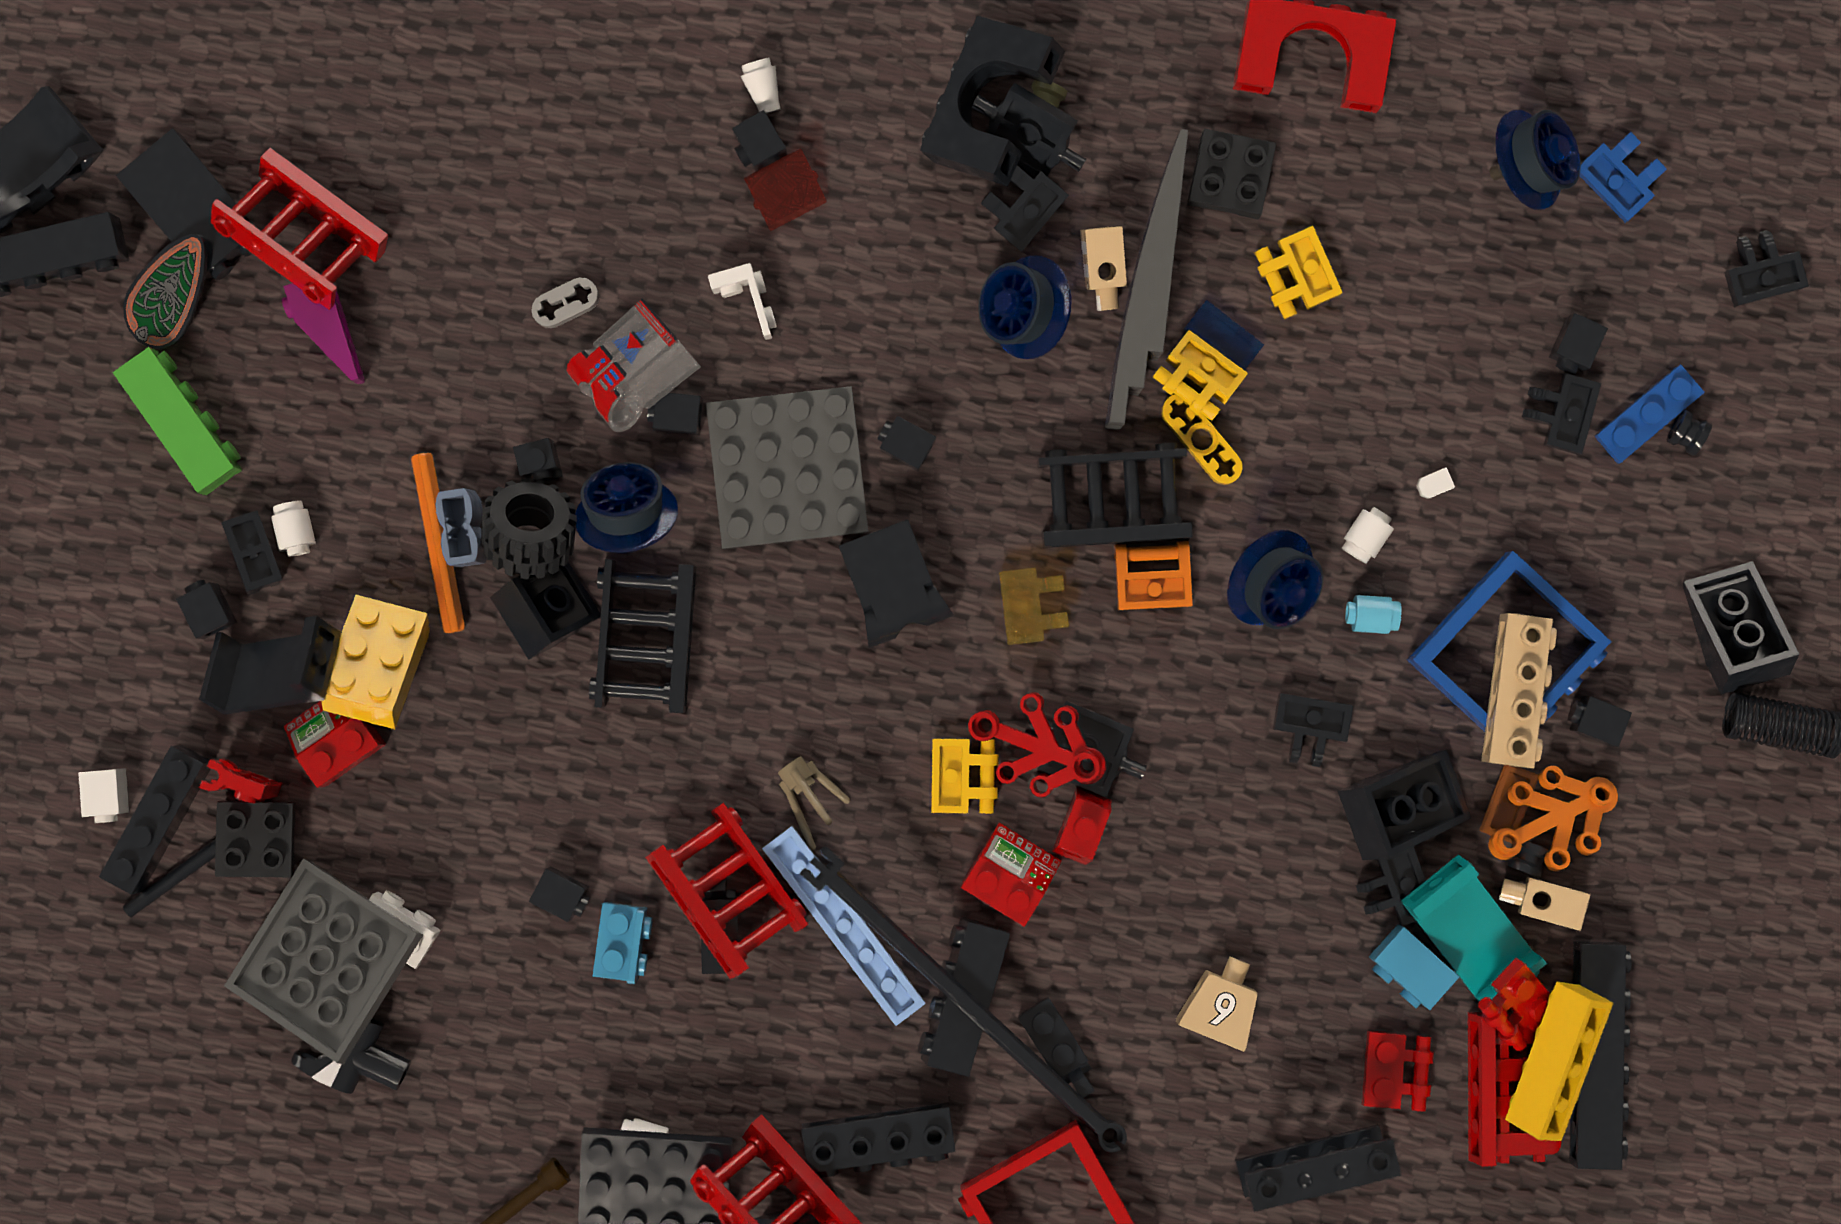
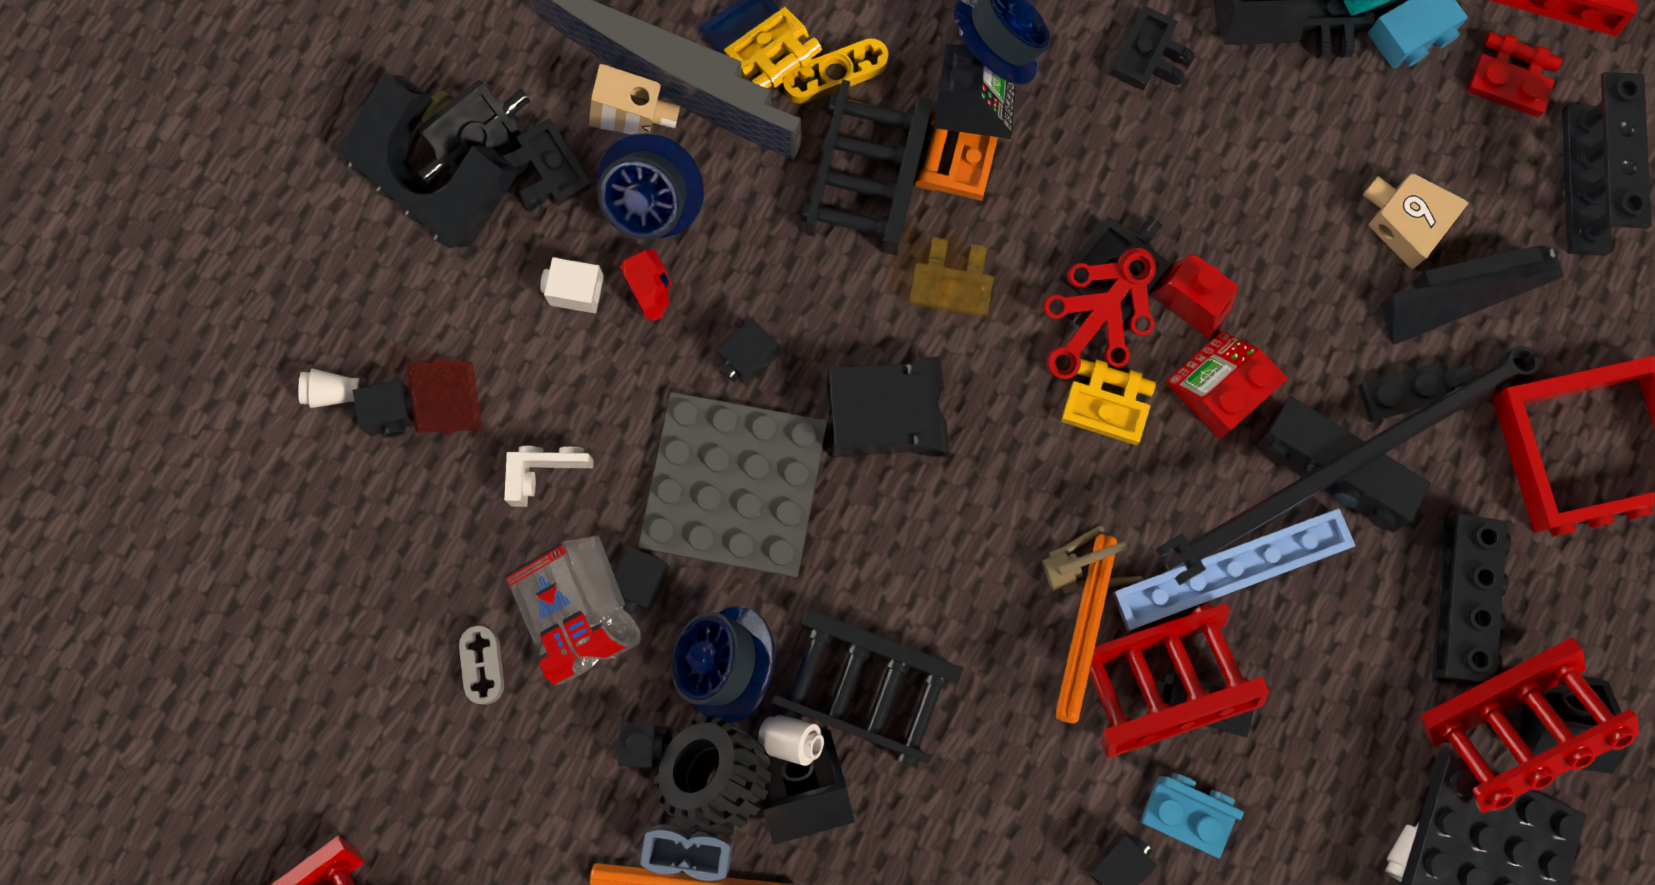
camera: 75 degrees left, 10 degrees down
(579, 585) = (791, 739): none -> white brick
(745, 809) = (1085, 634): none -> orange axle
(921, 267) = (572, 285): none -> white brick
(942, 334) = (648, 283): none -> red rock
(1168, 1074) = (1465, 288): none -> black wedge
(1202, 572) = (973, 96): none -> black slope

